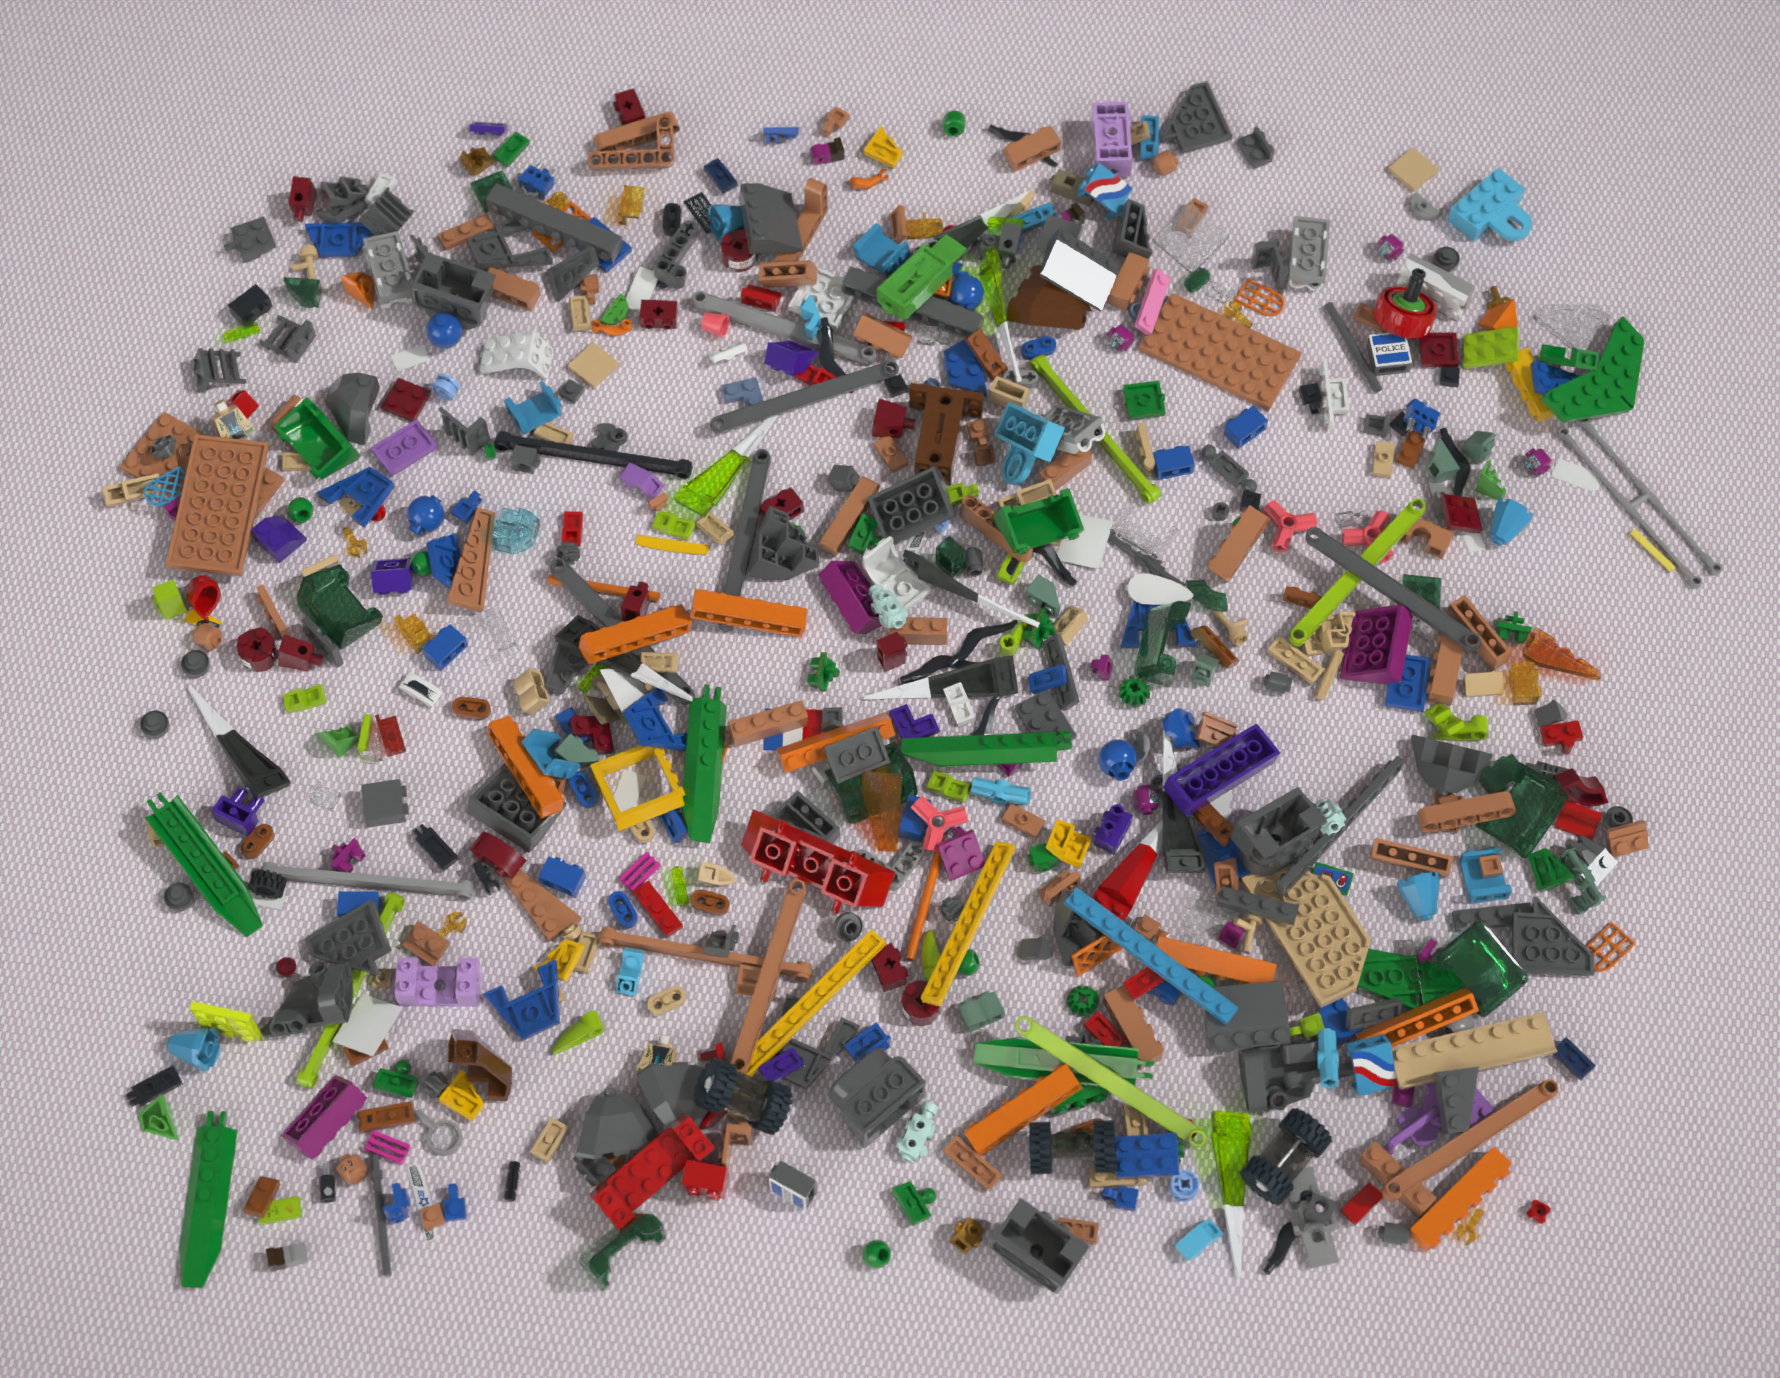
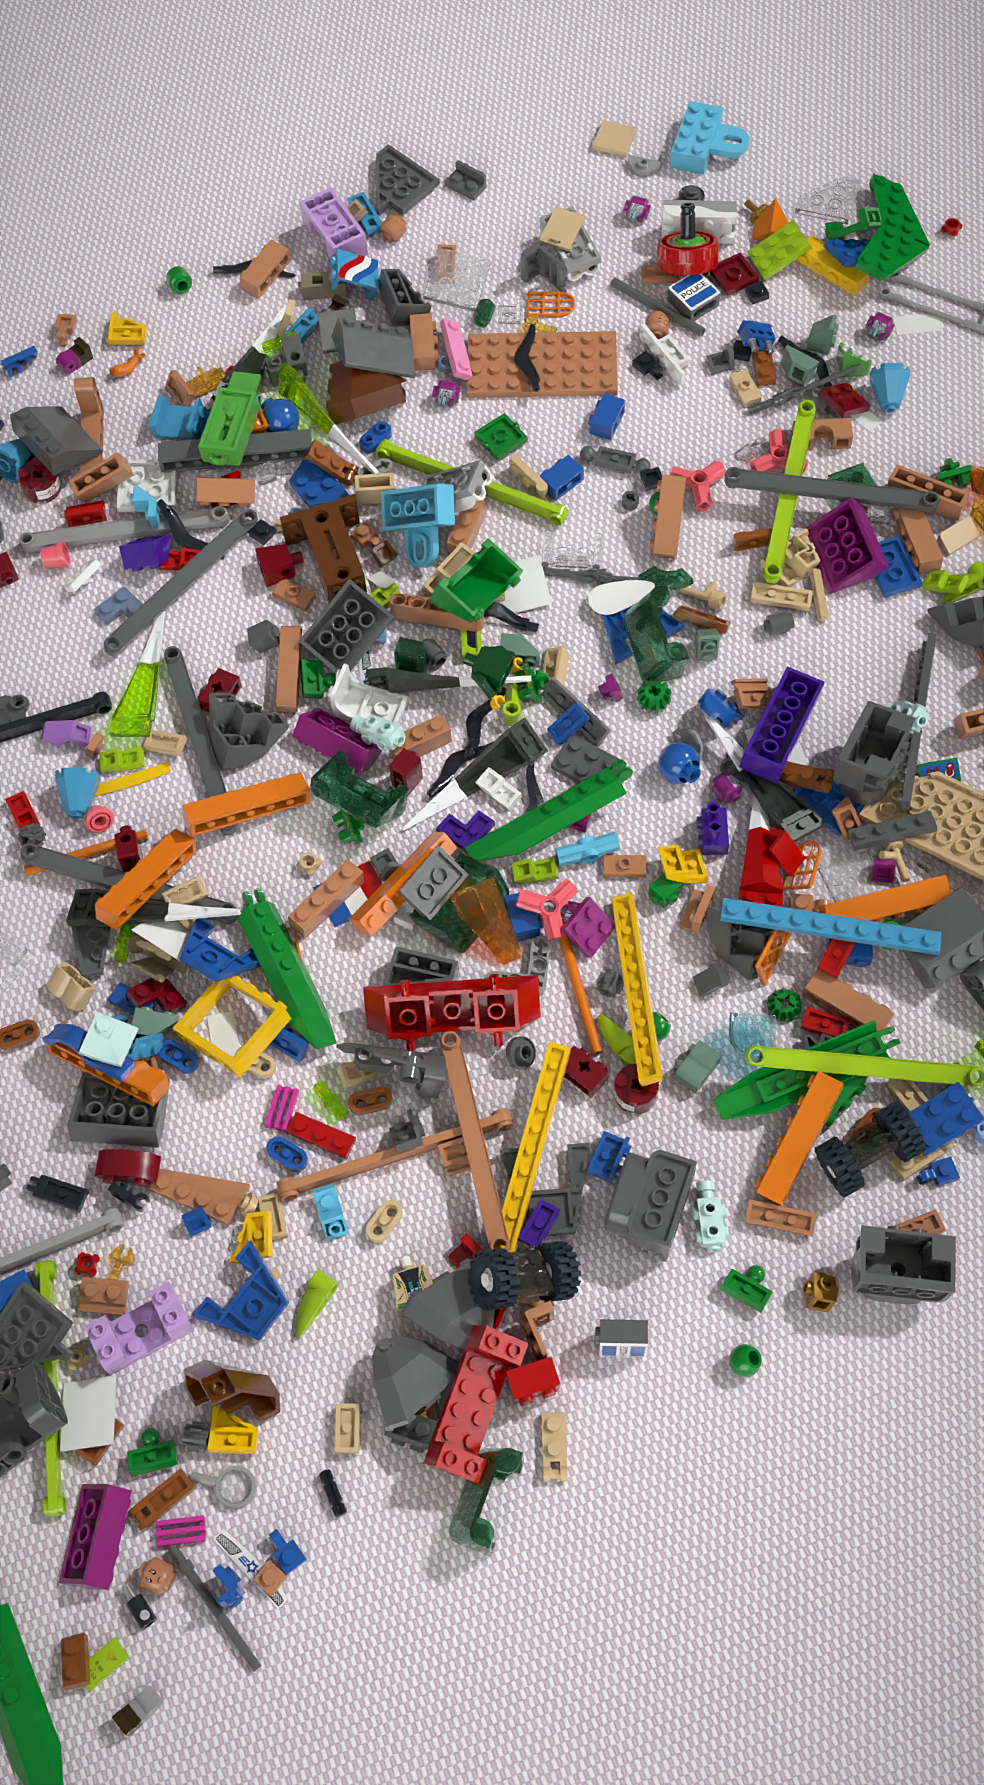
camera: 25 degrees left, 0 degrees up
(421, 914) = (82, 1259): none -> red plate
(516, 750) = (74, 1037): none -> blue piece
(525, 924) = (196, 1221): none -> blue plate
(533, 748) = (108, 1040): none -> light aqua plate
(562, 876) = (206, 1153): blue brick -> none
(623, 533) = (77, 789): none -> dark azure cone
(627, 565) = (98, 818): none -> coral brick
(695, 1238) = (554, 1446): none -> tan plate
(750, 888) = (417, 1068): none -> dark grey panel
(772, 682) = (308, 858): none -> tan plate
(837, 650) = (346, 791): none -> clear green windscreen
(969, 477) = (381, 579): none -> white sticker
(1008, 601) = (491, 670): none -> dark green torso
(1039, 1006) = (751, 1030): none -> clear light blue brick
(1156, 877) = (785, 851): none -> red panel
(1177, 881) = (804, 873): none -> orange window
(1203, 341) = (523, 361): none -> black piece
(1307, 237) = (562, 229): none -> tan container
(1339, 364) = (658, 324): none -> nougat head
(1417, 484) = (788, 394): none -> dark grey sword
(1665, 396) = (951, 227): none -> red plate

